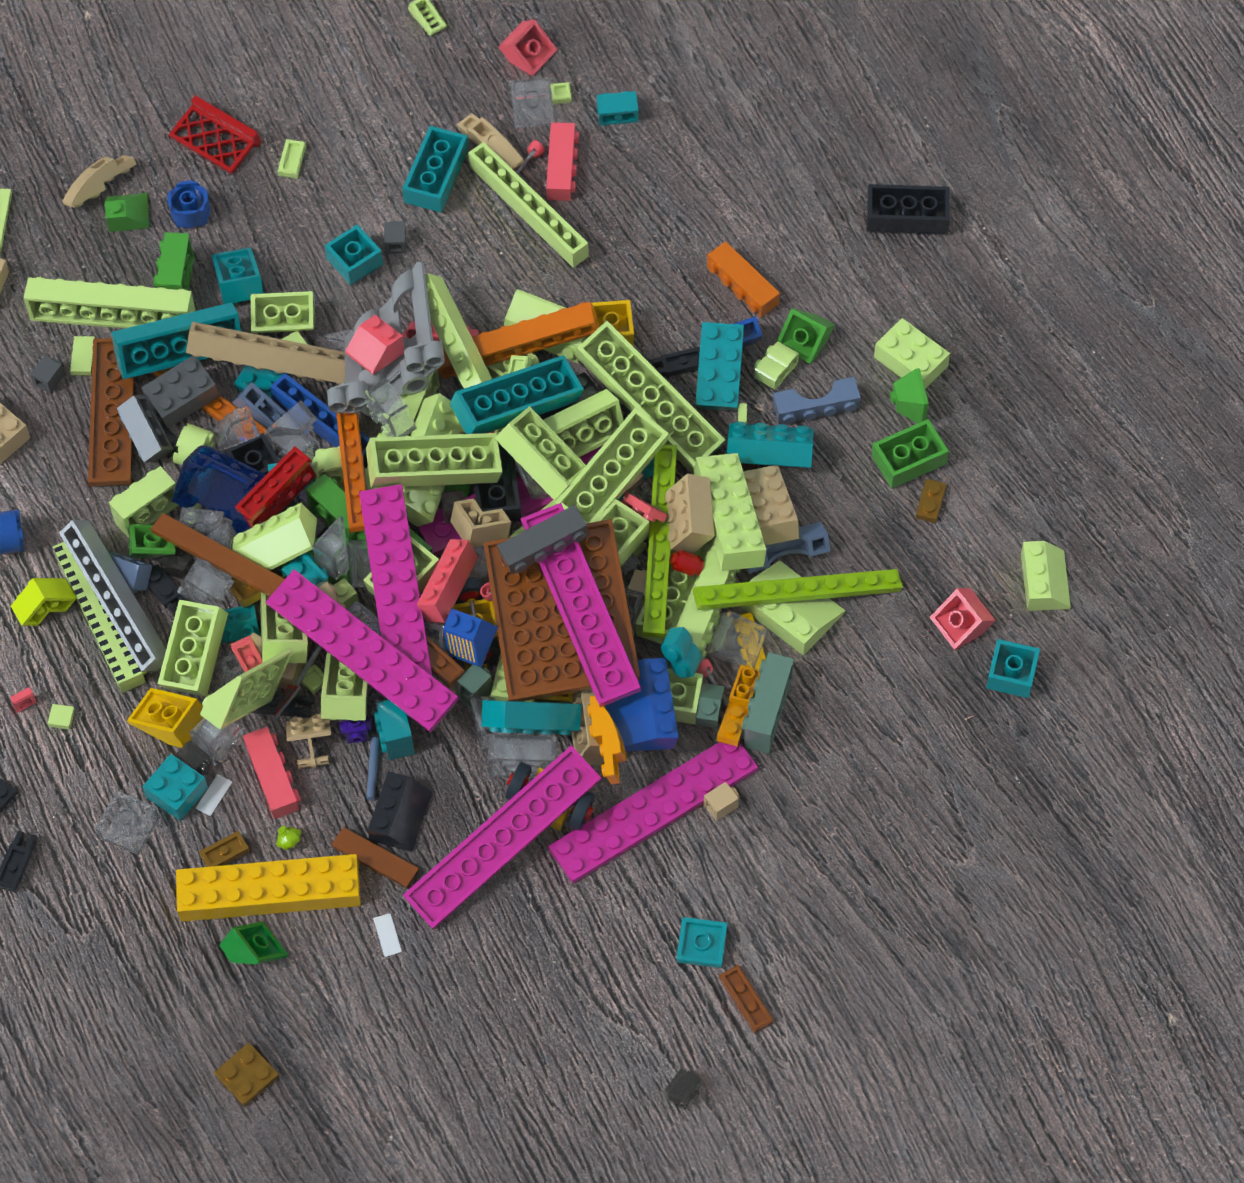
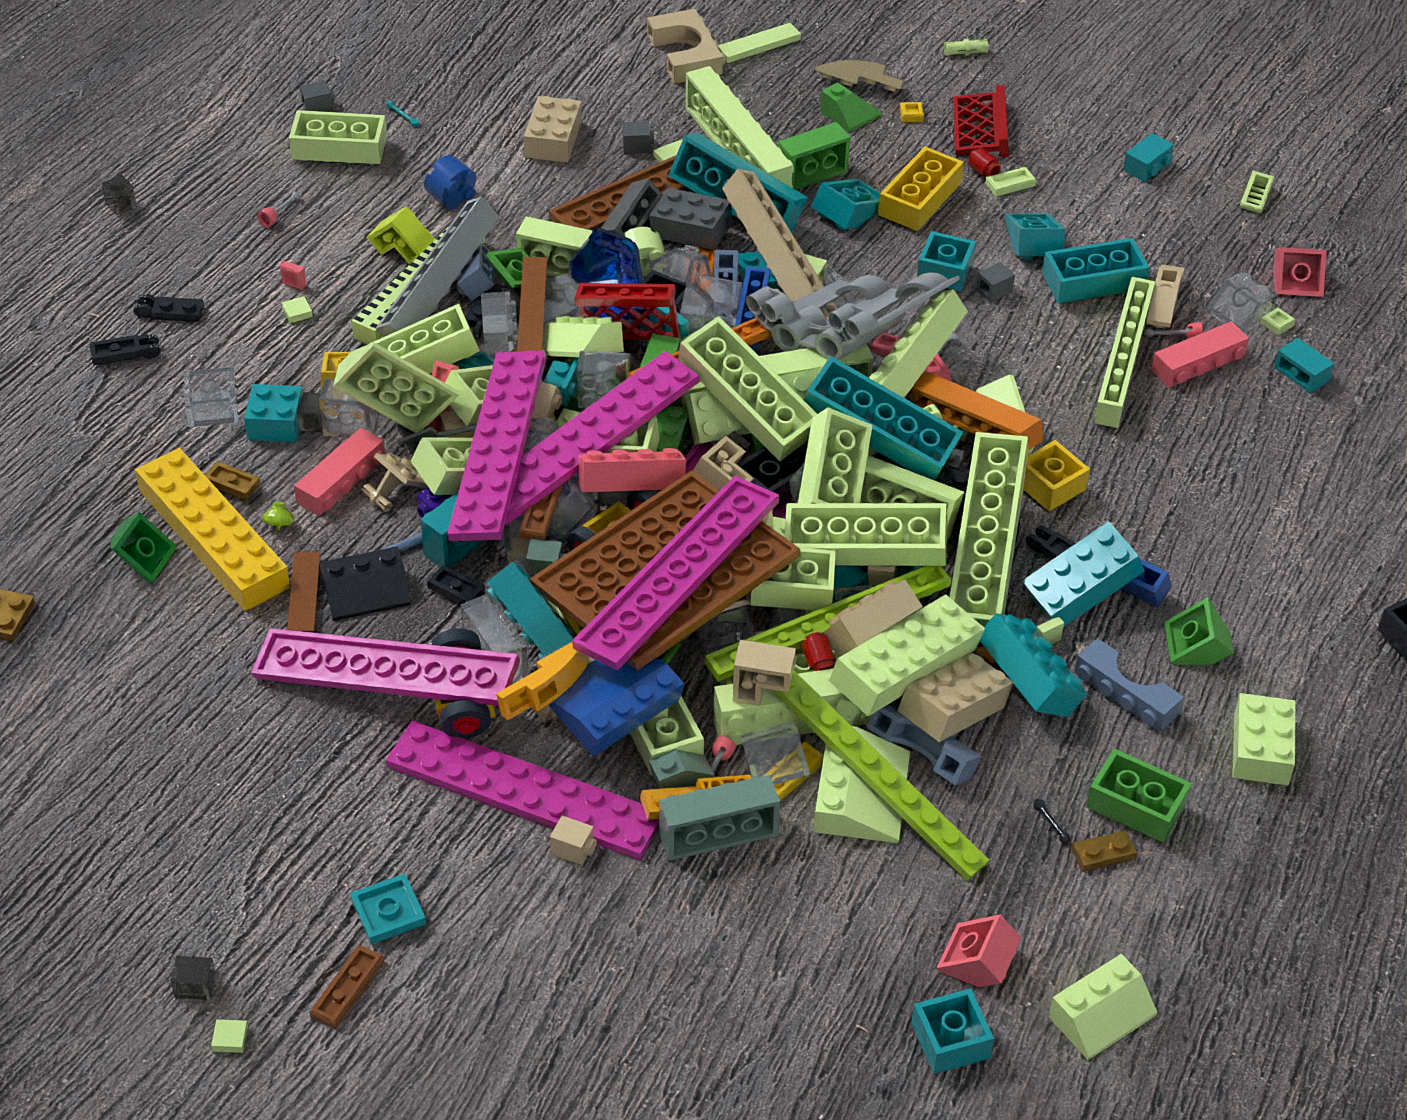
camera: 55 degrees right, 15 degrees down
(118, 89) = (966, 47): none -> yellowish green pin
(162, 172) = (911, 112): none -> yellow tile
(189, 204) = (891, 136): blue brick -> none
(213, 795) = (292, 449): white sticker -> none
(263, 163) = (984, 163): none -> red brick
(263, 221) = (920, 188): none -> yellow brick
(282, 312) = (838, 243): yellowish green slope -> none
(340, 56) = (1148, 157): none -> teal brick
(364, 180) = (1034, 234): none -> teal slope
(375, 345) = (846, 287): coral slope -> none
(387, 935) = (225, 647): white sticker -> none
(389, 410) = (781, 336): clear brick -> none
(448, 752) = (455, 585): none -> black hinge
(468, 637) = (584, 514): blue slope -> none
(543, 540) = (720, 497): dark grey brick -> none
(642, 507) = (849, 583): coral hinge -> none
(681, 652) = (703, 696): teal brick -> none
(695, 604) = (761, 667): none -> tan brick
(740, 1089) = (229, 1036): none -> yellowish green tile
(743, 279) = (1211, 555): orange brick -> none
(776, 365) = (1138, 630): yellowish green brick -> none
(870, 514) = (1039, 805): none -> black hinge
(910, 396) = (1211, 762): bright green slope -> none

